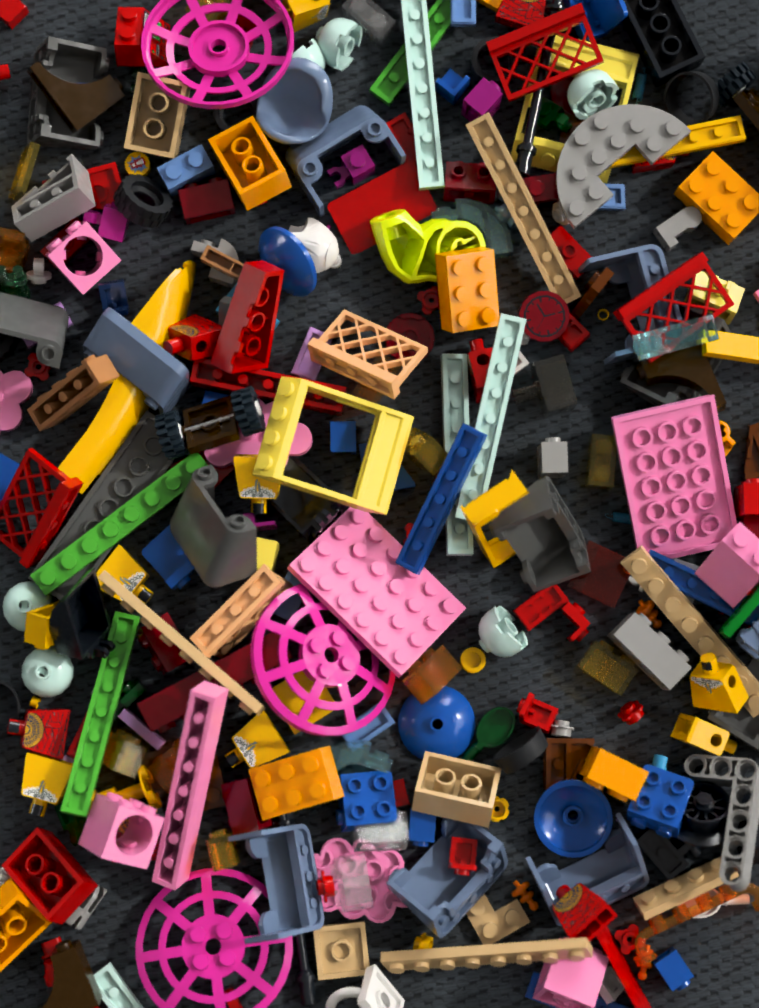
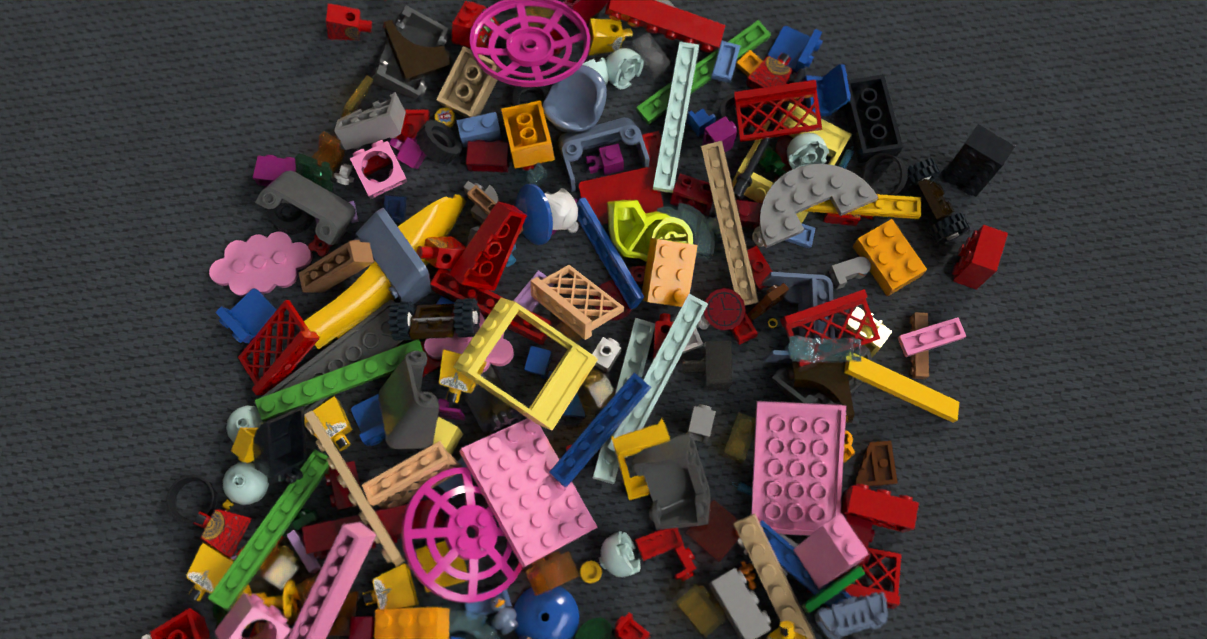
camera: 20 degrees right, 10 degrees down
(273, 211) = (537, 175): none -> clear light blue plate
(389, 285) = (609, 254): none -> blue tile
(392, 738) = (505, 618): none -> sand blue animal
(420, 405) = (606, 353): none -> white brick

